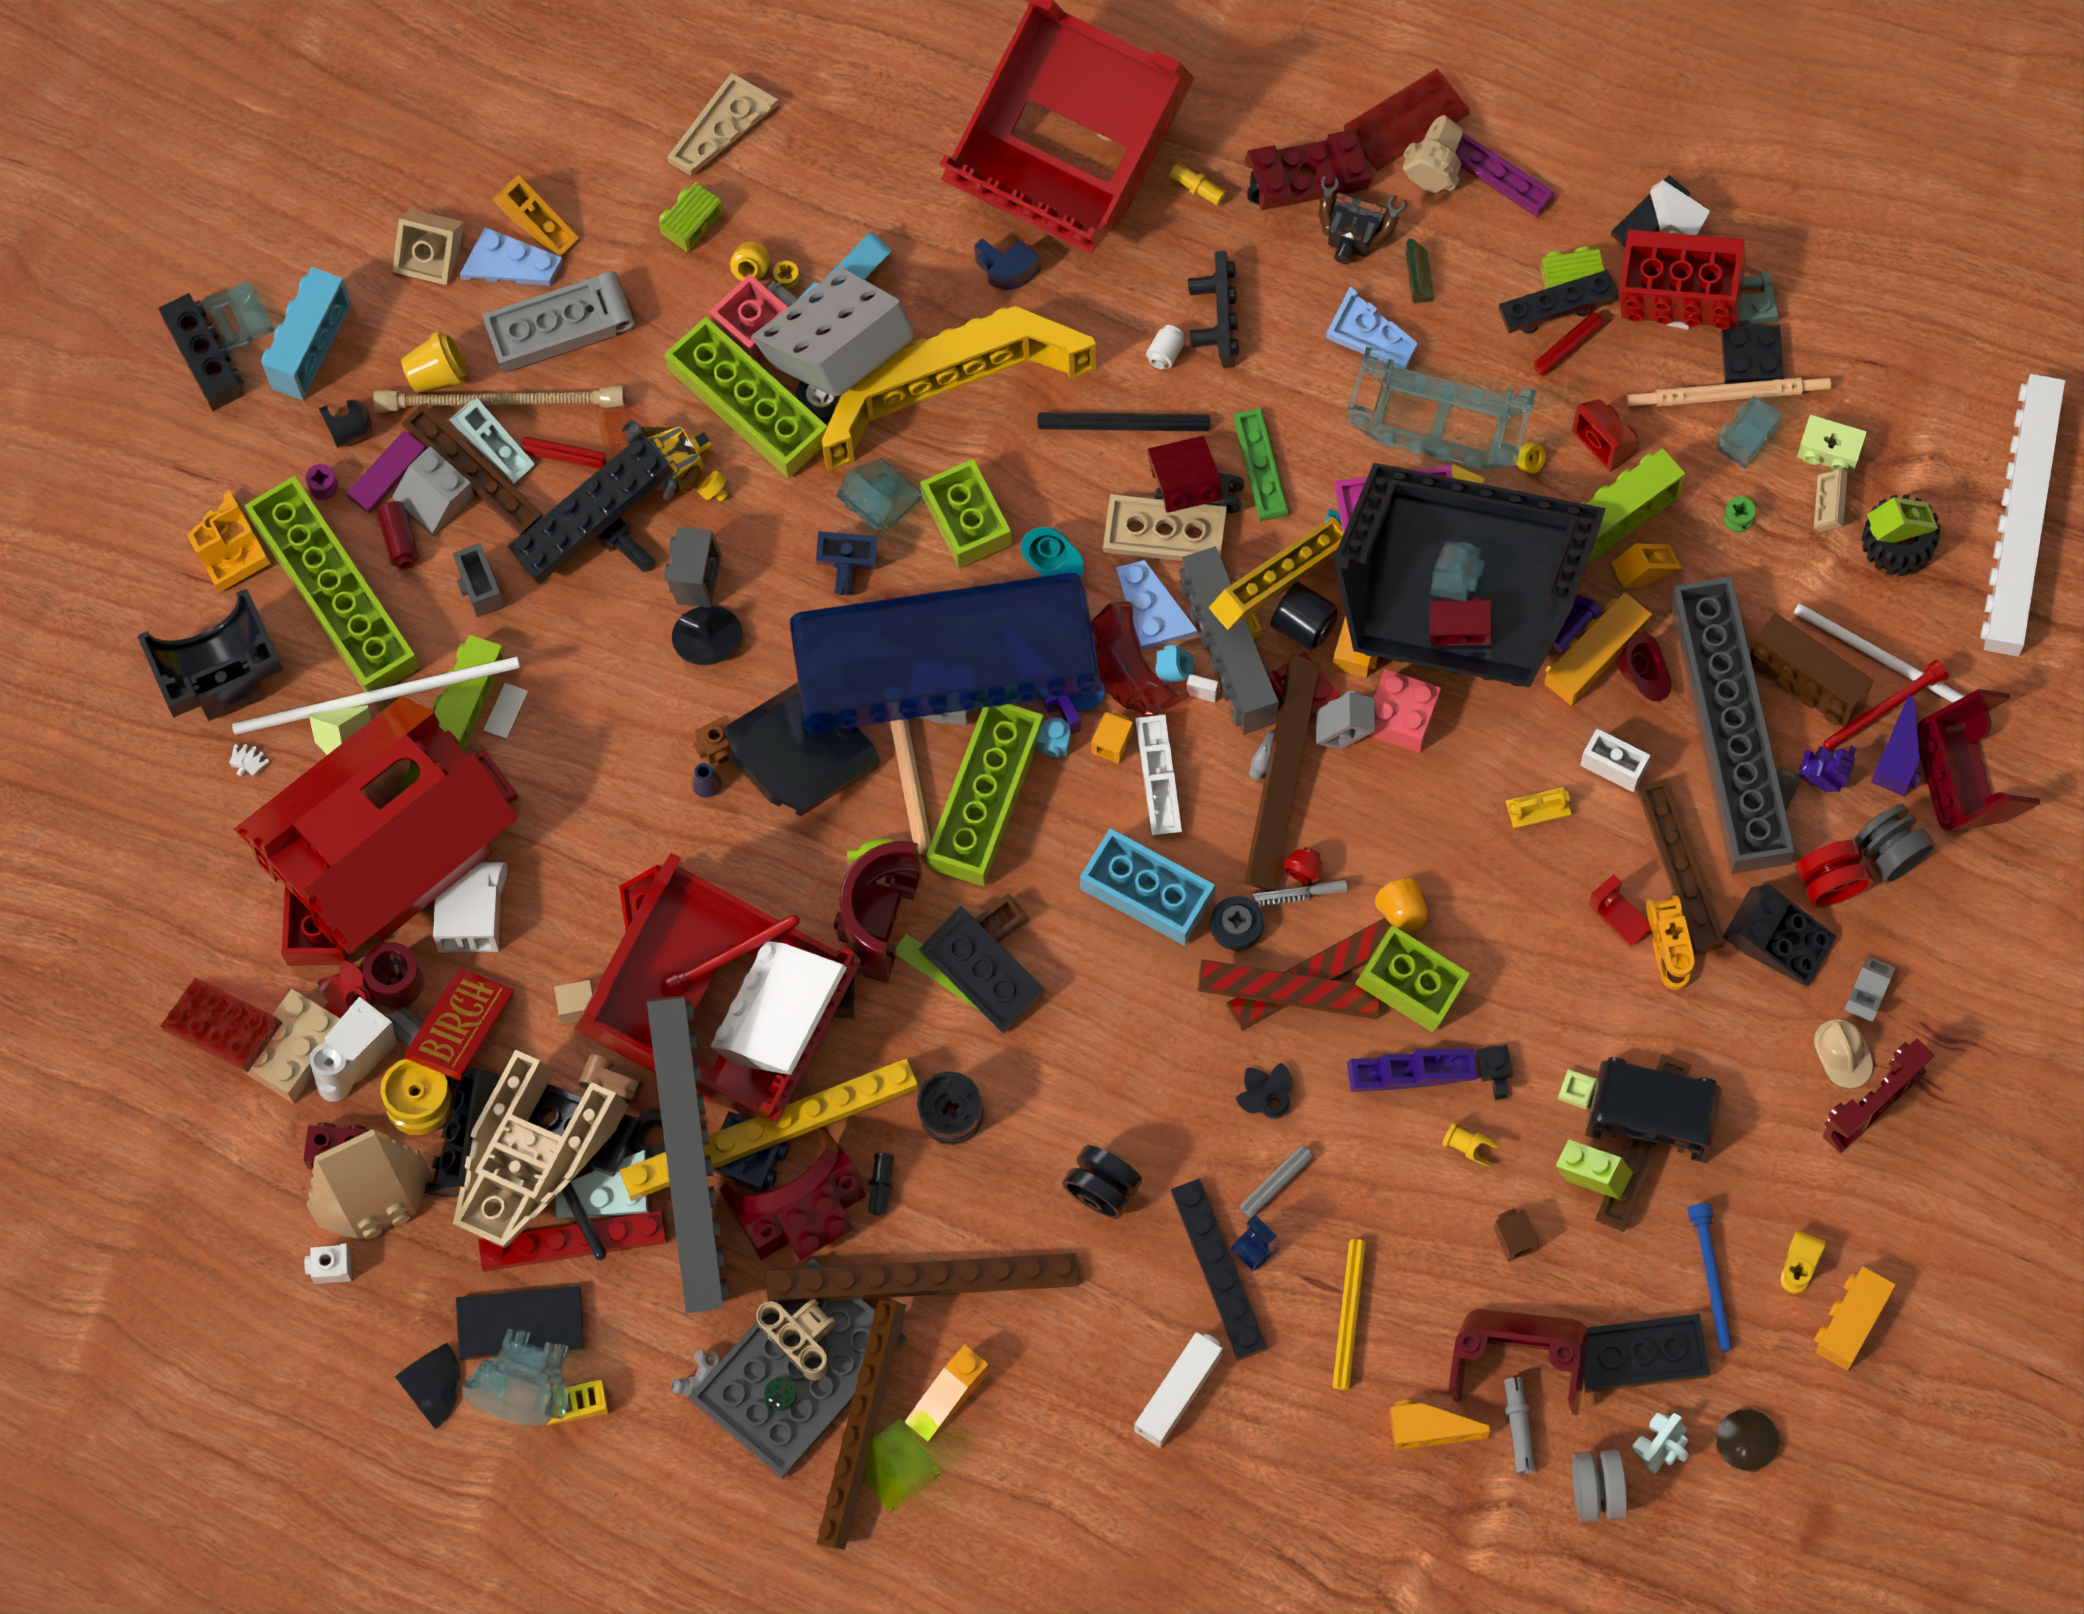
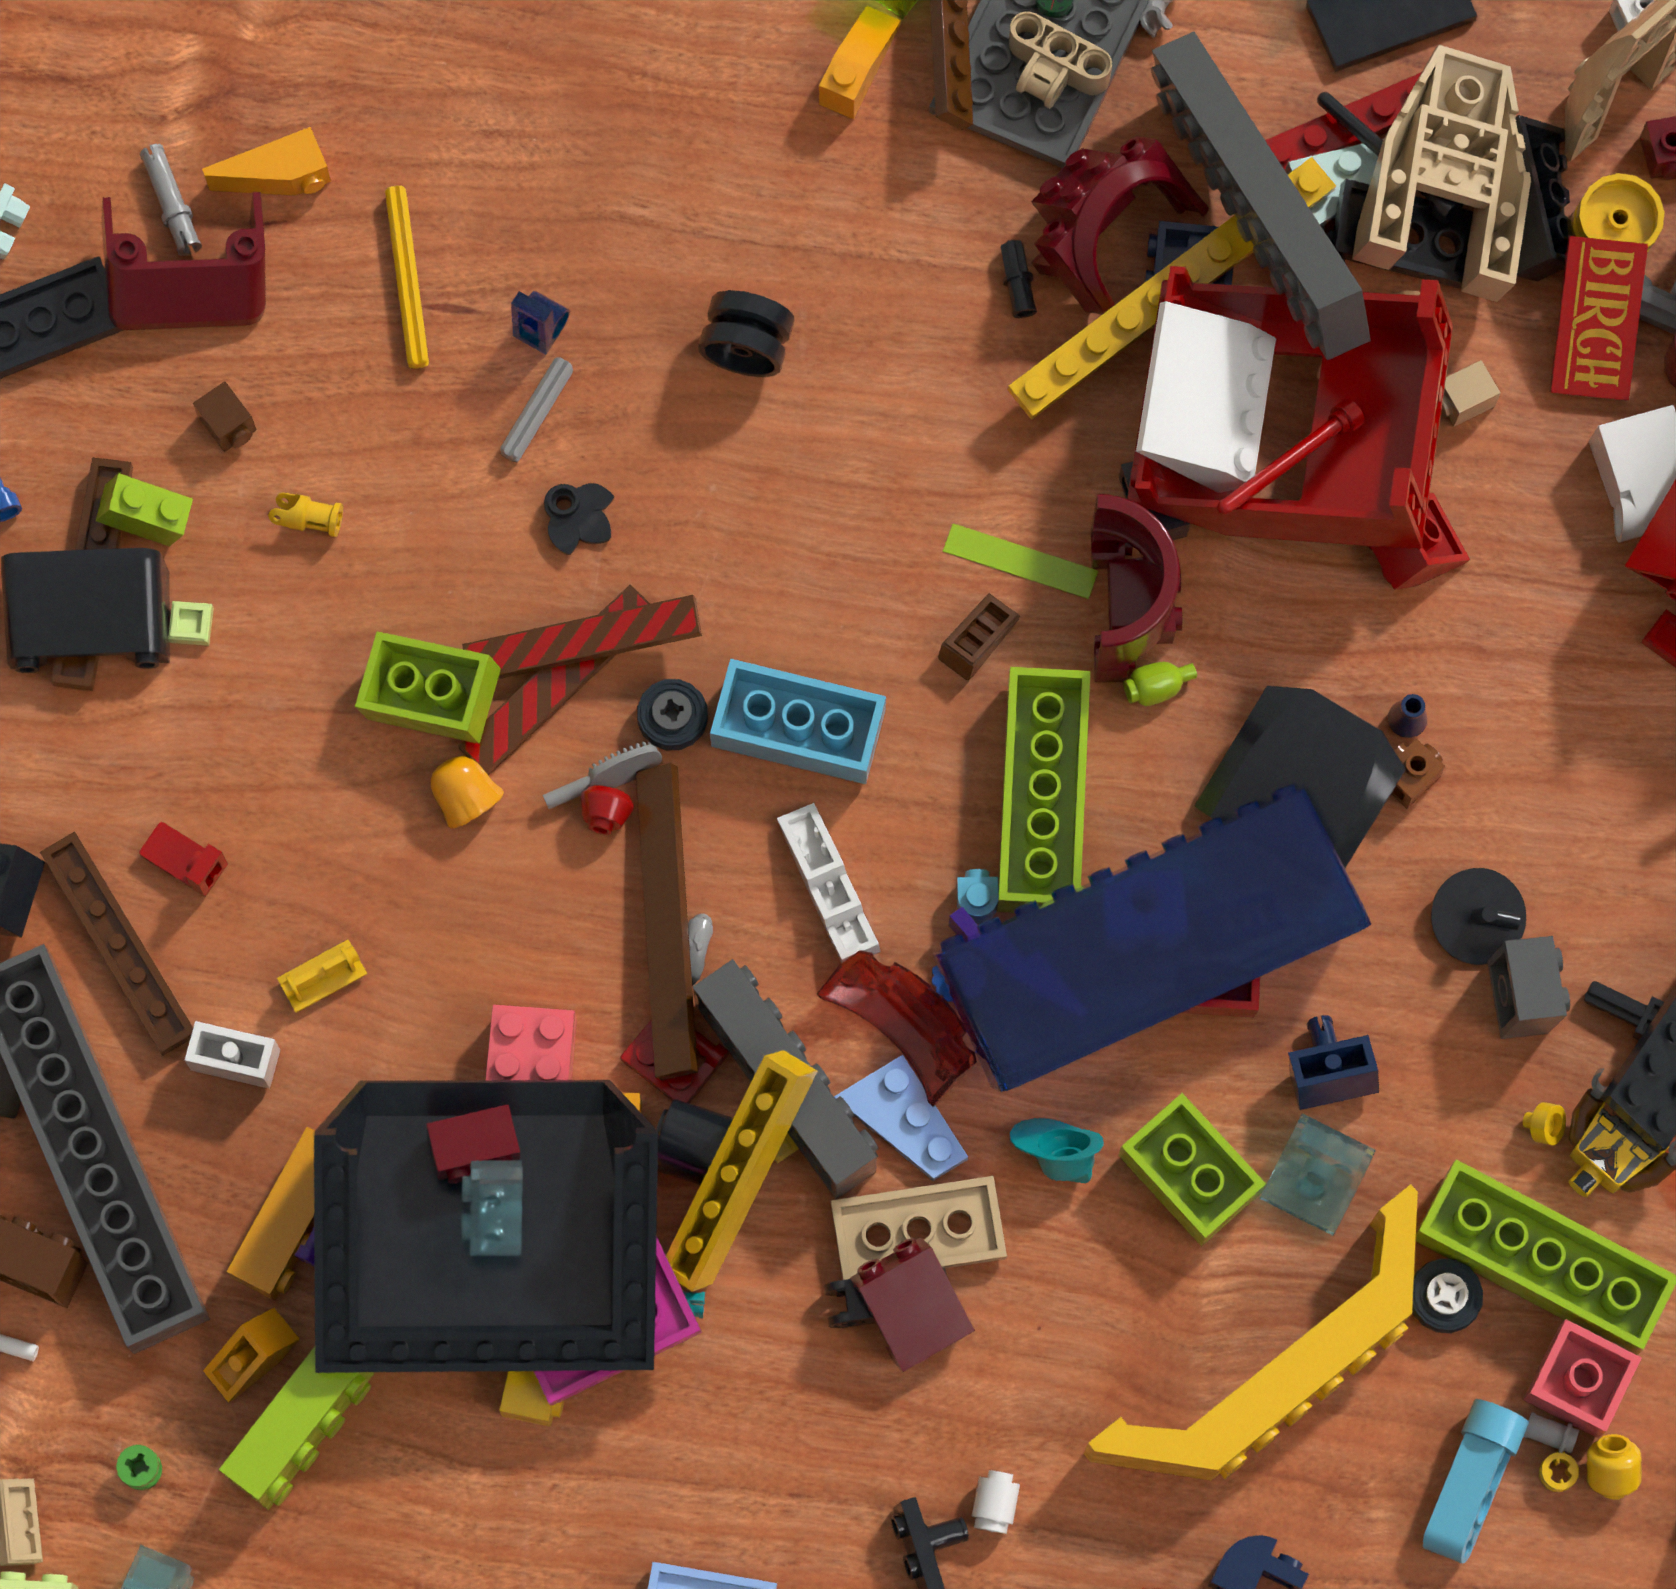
camera: 160 degrees right, 5 degrees up
(852, 345) = (1447, 1350): light grey piece -> none
(911, 785) = (1135, 769): light nougat axle -> none
(922, 1278) = (930, 175): reddish brown plate -> none
(950, 1090) = (960, 356): black wheel -> none
(982, 969) = (975, 565): black plate -> none
(1112, 736) = (902, 916): light orange brick -> none
(1123, 421) = (1020, 1377): black axle -> none
(1174, 664) = (849, 1036): medium azure plate -> none
(1179, 1389) = (586, 132): white brick -> none
(1202, 688) = (804, 1015): white tile -> none
(1218, 1270) = (579, 289): black plate -> none
(1260, 465) = (816, 1366): bright green tile -> none
(1345, 720) = (601, 1006): light grey brick -> none
(1412, 1070) = (402, 588): dark purple slope -> none
(1446, 395) = (585, 1536): clear light blue windscreen -> none
(1495, 1067) = (299, 622): black plate -> none
(1531, 458) = (447, 1472): yellow tile -> none
(1603, 1485) = (56, 139): light grey wheel -> none
(1604, 433) = (347, 1533): red slope -> none
(1645, 667) = (218, 1195): dark red piece -> none
(1671, 940) = (107, 826): light orange piece -> none

